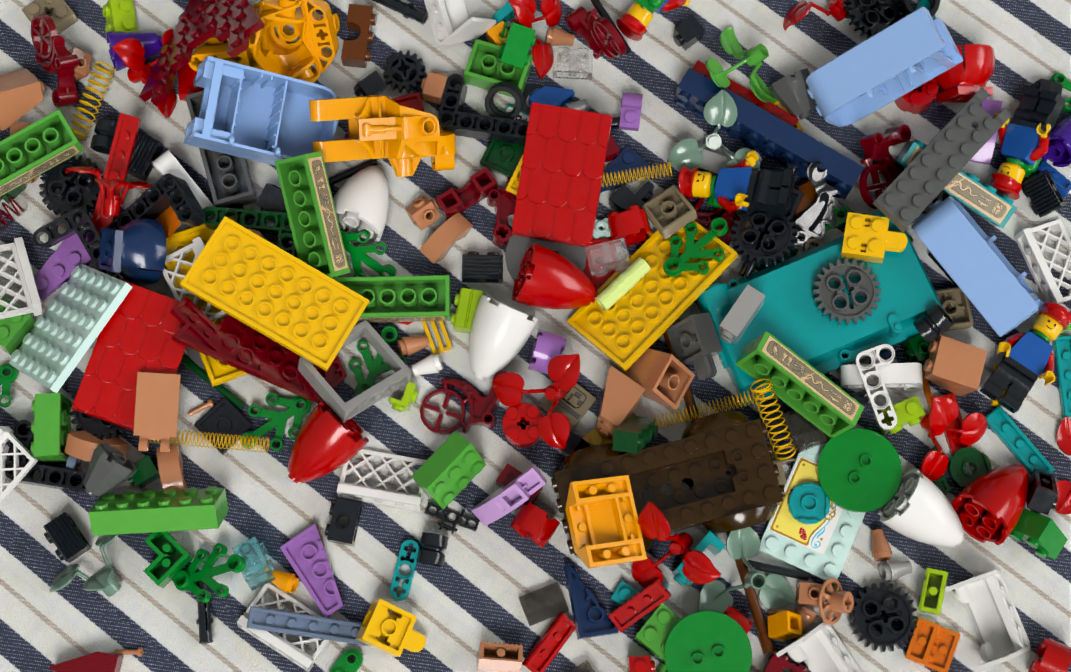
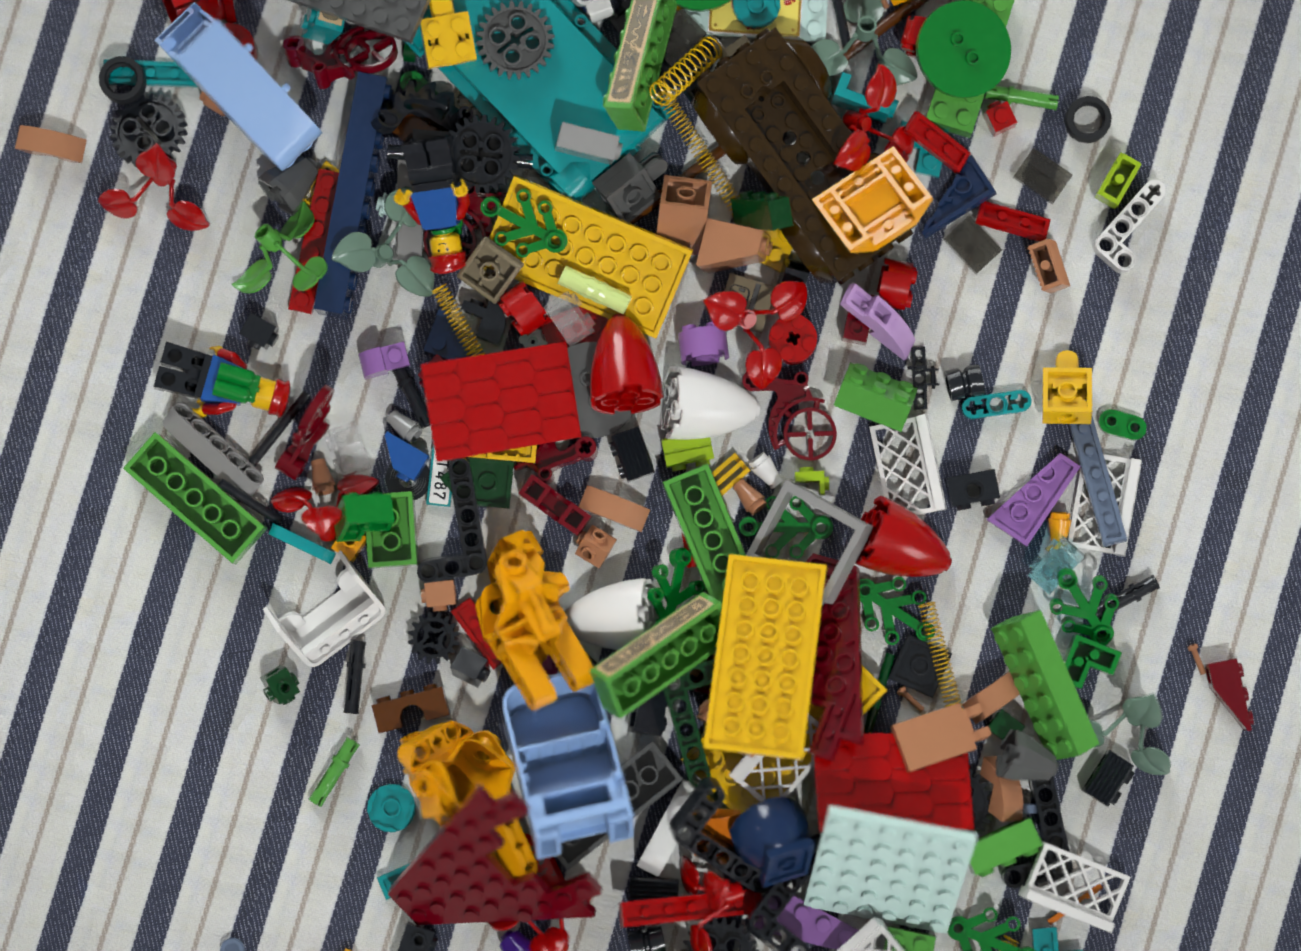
camera: 105 degrees left, 10 degrees up
(507, 87) = (417, 508): black tyre -> none

